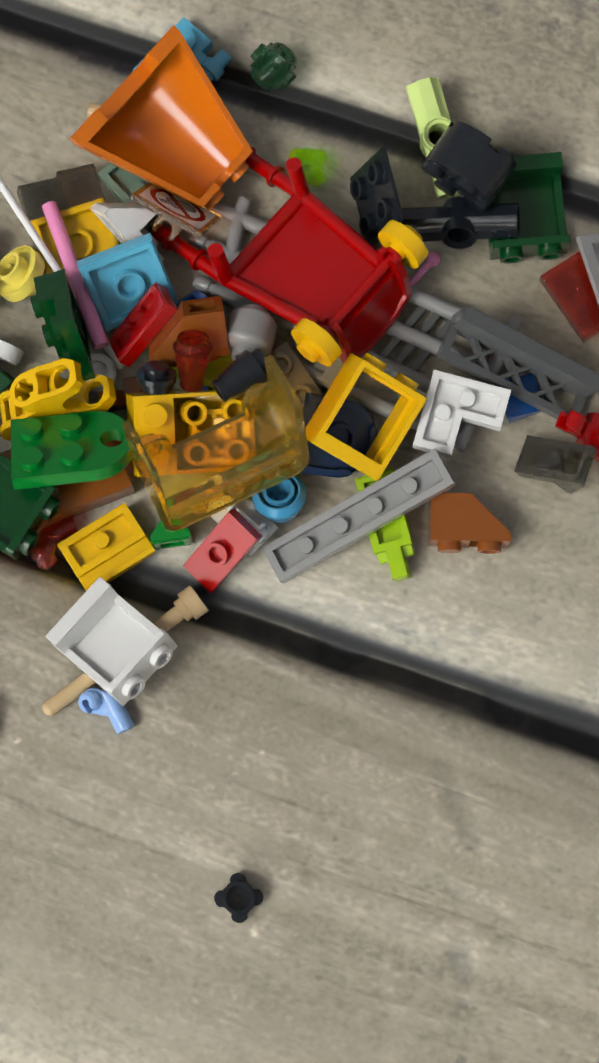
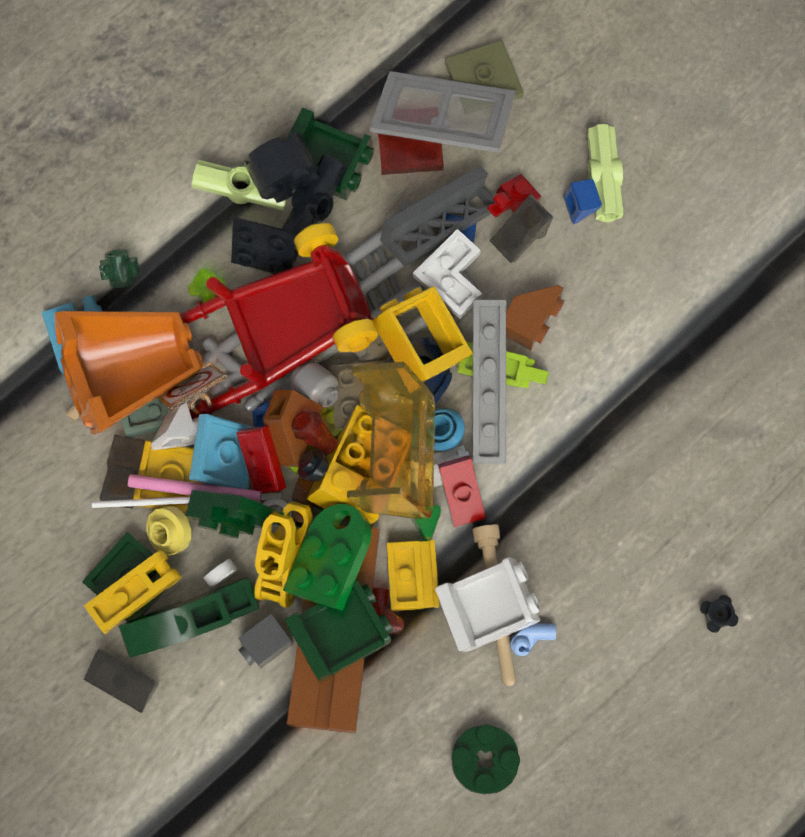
camera: 65 degrees left, 5 degrees down
(241, 374) = (346, 402): black cone -> none

